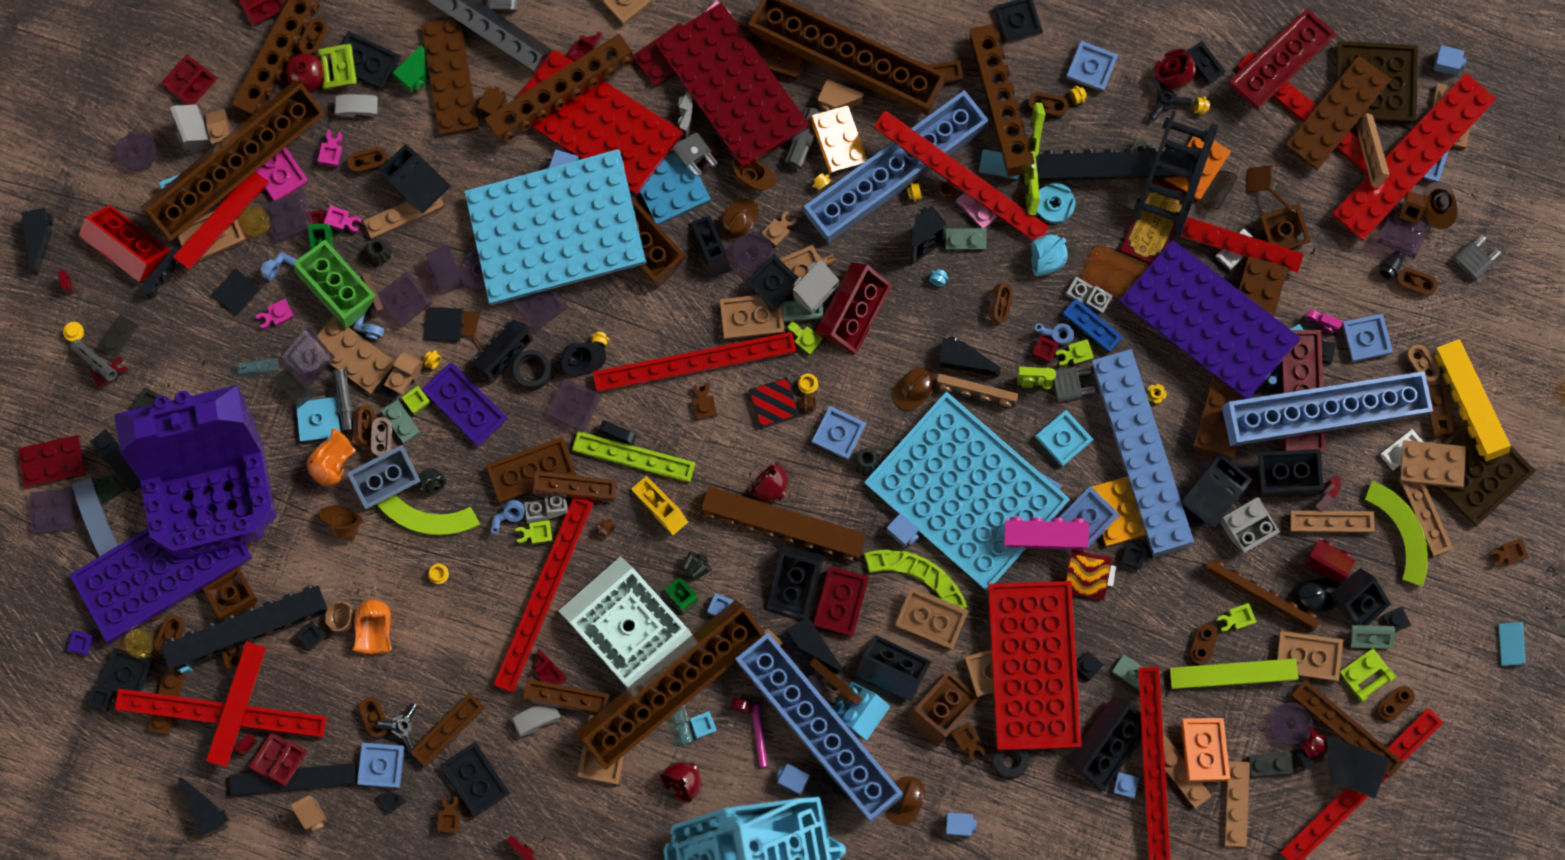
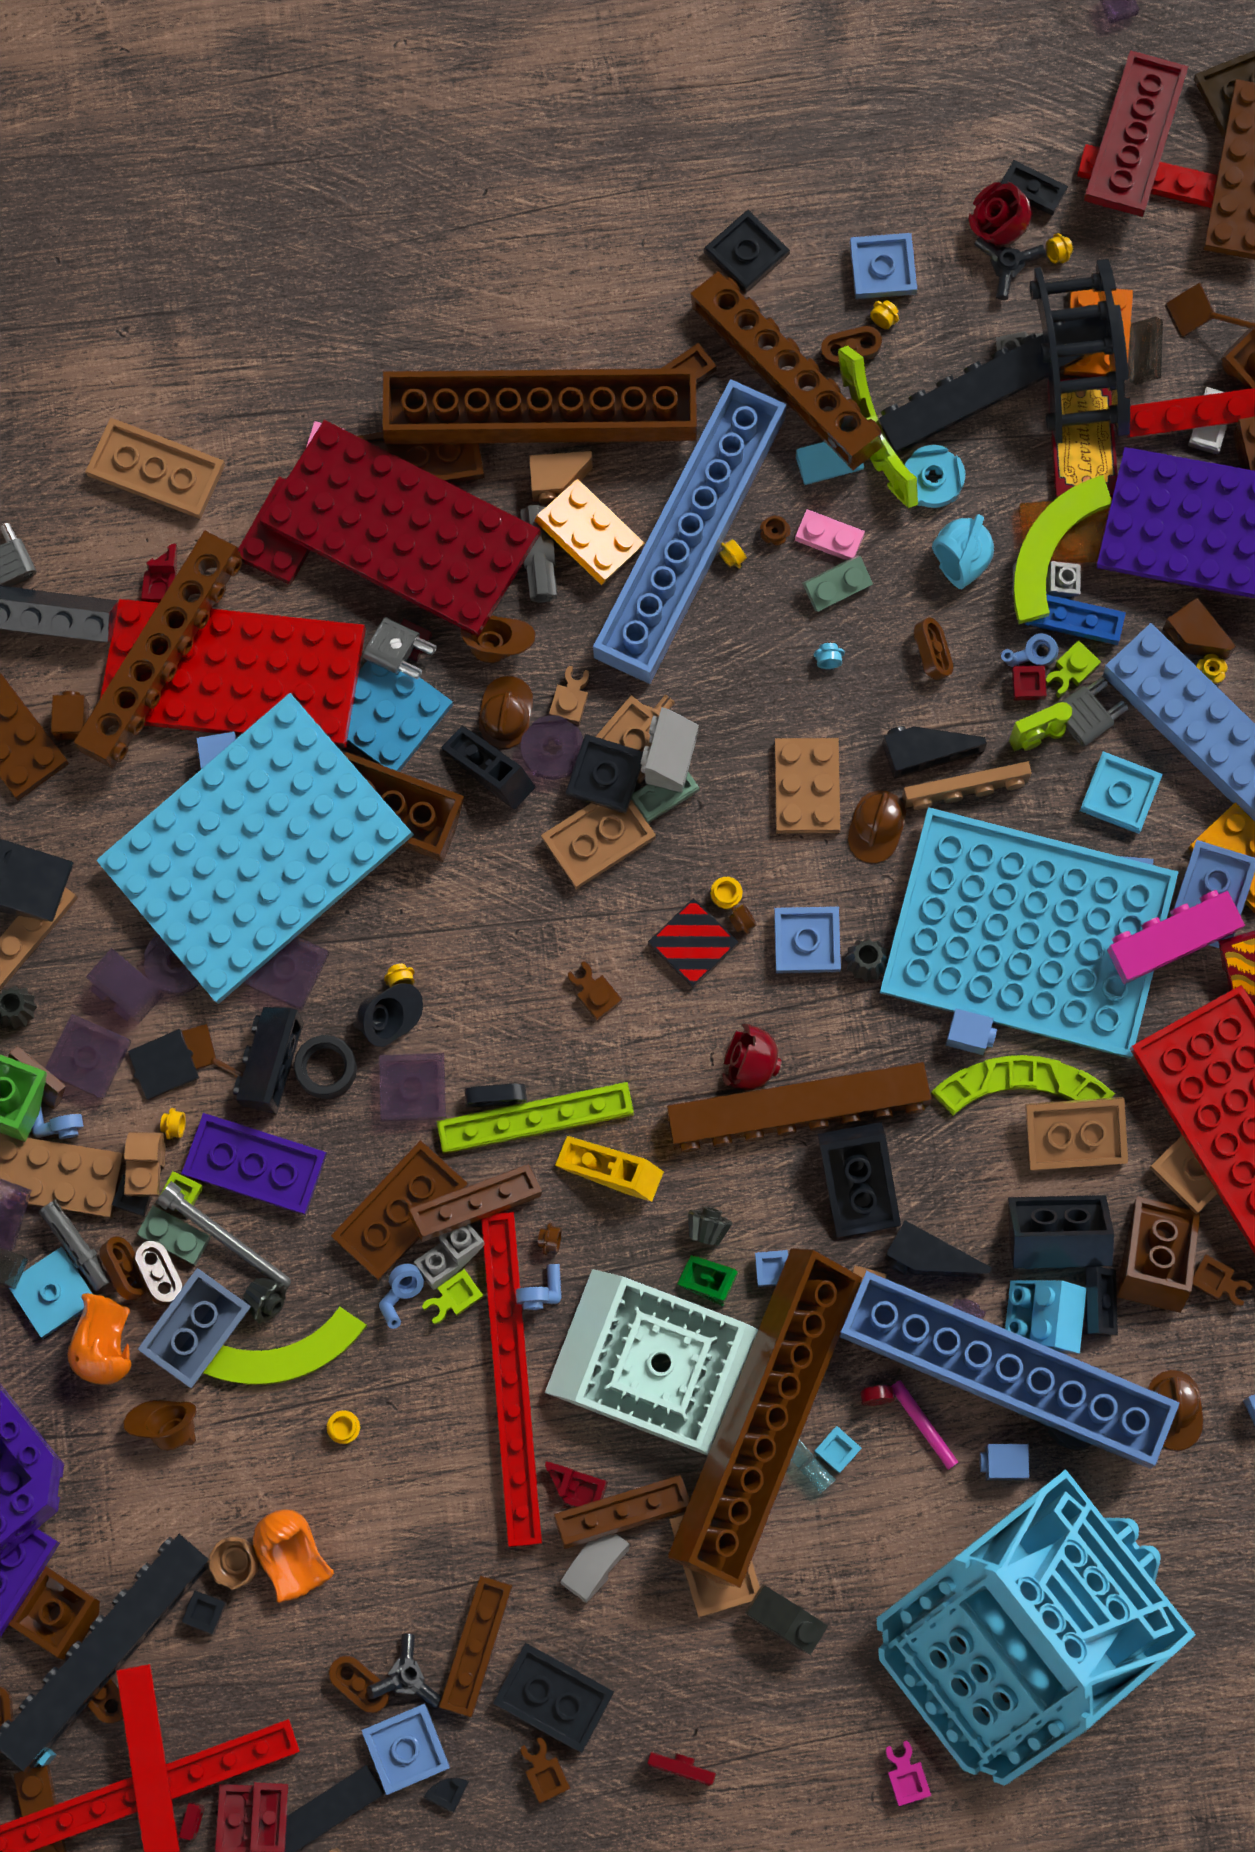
camera: 30 degrees left, 0 degrees up
(409, 401) = (174, 1199): none -> dark grey piece
(579, 555) = (534, 1297): none -> medium blue plate
(623, 801) = (786, 1619): none -> pearl dark grey slope
(682, 779) = (852, 1543): dark red cylinder -> none
(685, 119) = (353, 595): light grey slope -> none
(694, 362) = (550, 942): red plate -> none
(806, 338) = (692, 831): lime plate -> none
(821, 181) = (595, 602): yellow plate -> none
(834, 682) = (994, 1294): reddish brown plate -> none
(841, 601) = (937, 1175): dark red plate -> none
(854, 307) = (734, 754): dark red slope -> none
(886, 345) = (807, 785): none -> medium nougat plate
(895, 718) = (1101, 1301): none -> black plate
(927, 234) = (784, 599): black slope -> none
(960, 176) = (787, 500): red plate -> none
(1096, 271) = (1044, 537): none -> lime tile
(1158, 367) = (1197, 632): none -> reddish brown slope

